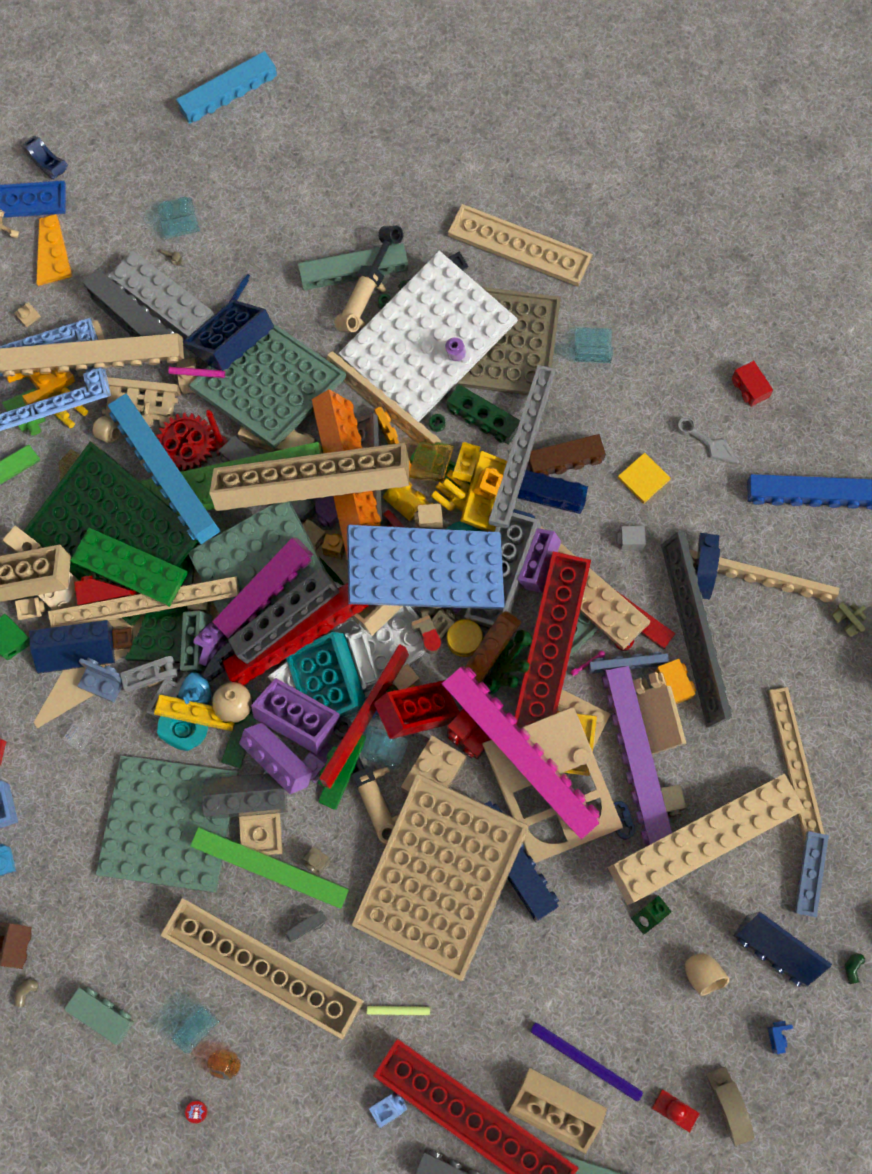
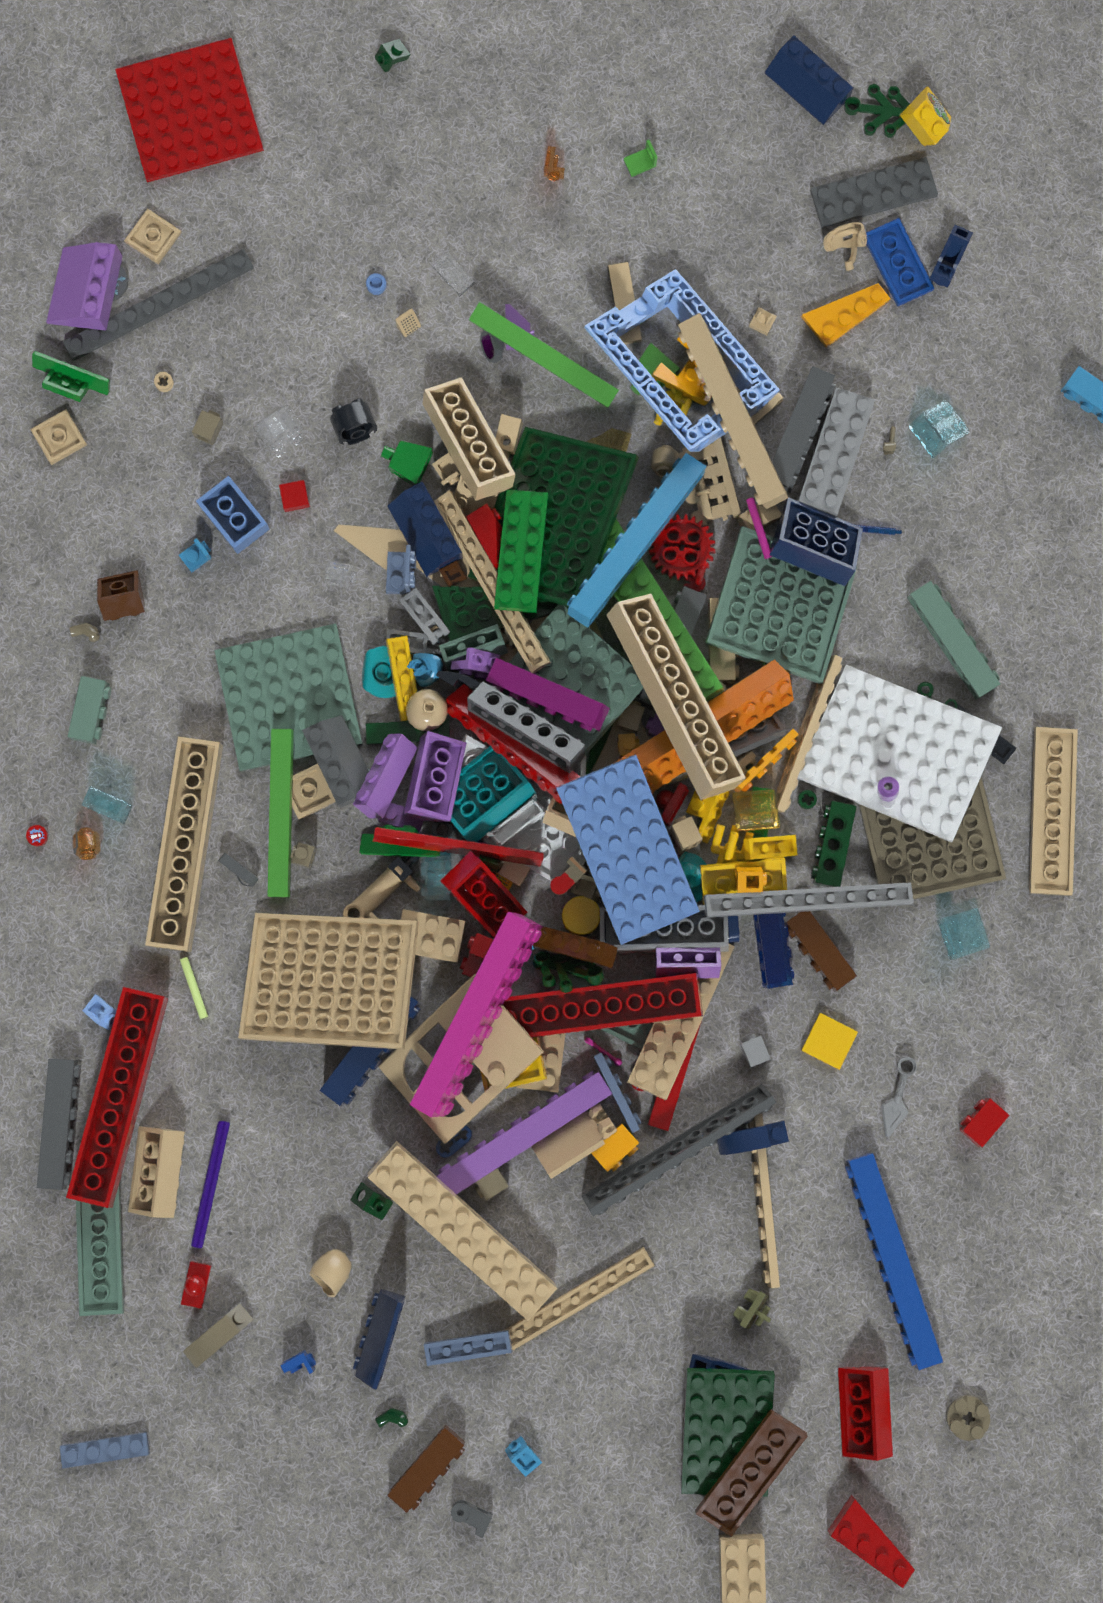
camera: 65 degrees right, 10 degrees up
(369, 278) = (941, 663): piece -> none

